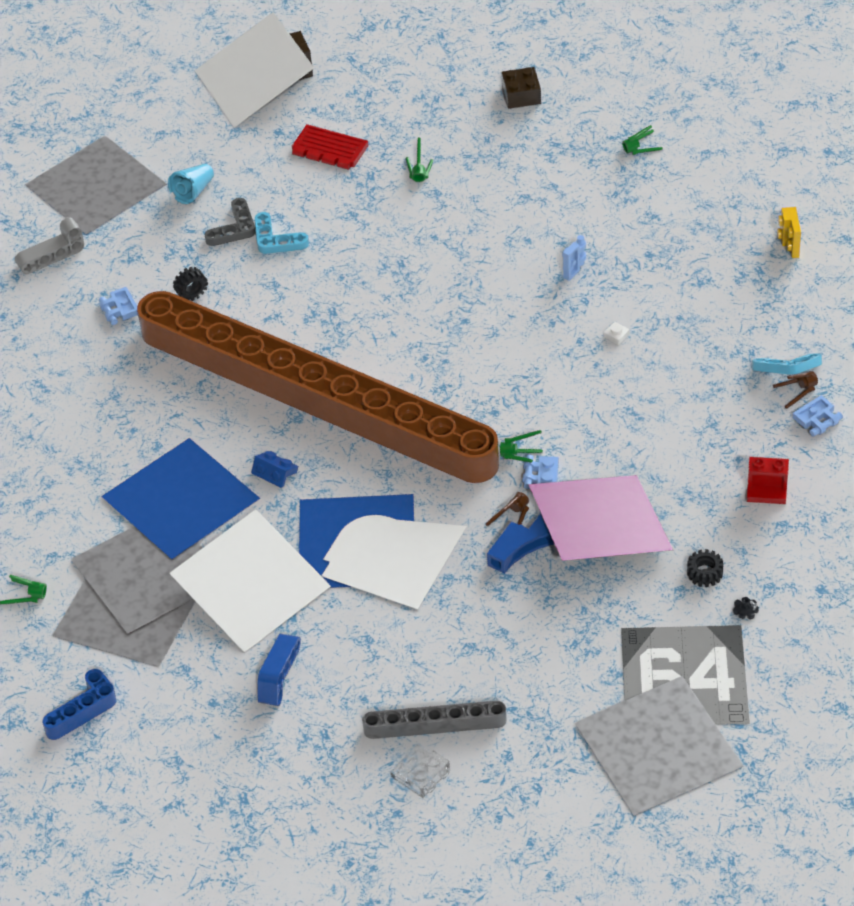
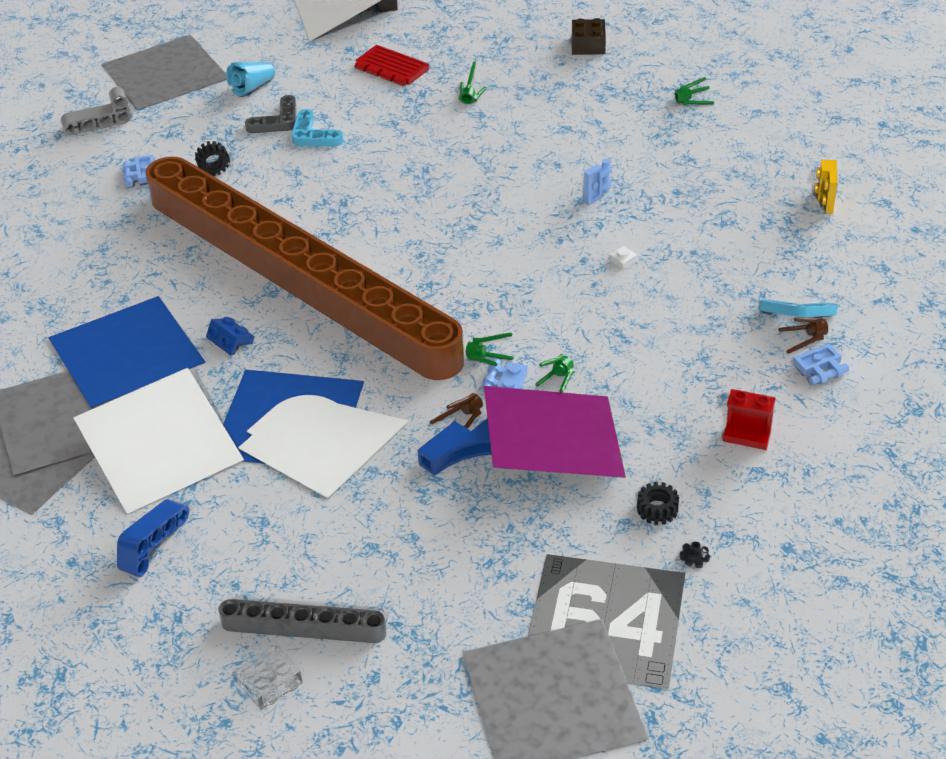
camera: 10 degrees right, 5 degrees down
(589, 454) = (562, 366): none -> green plant

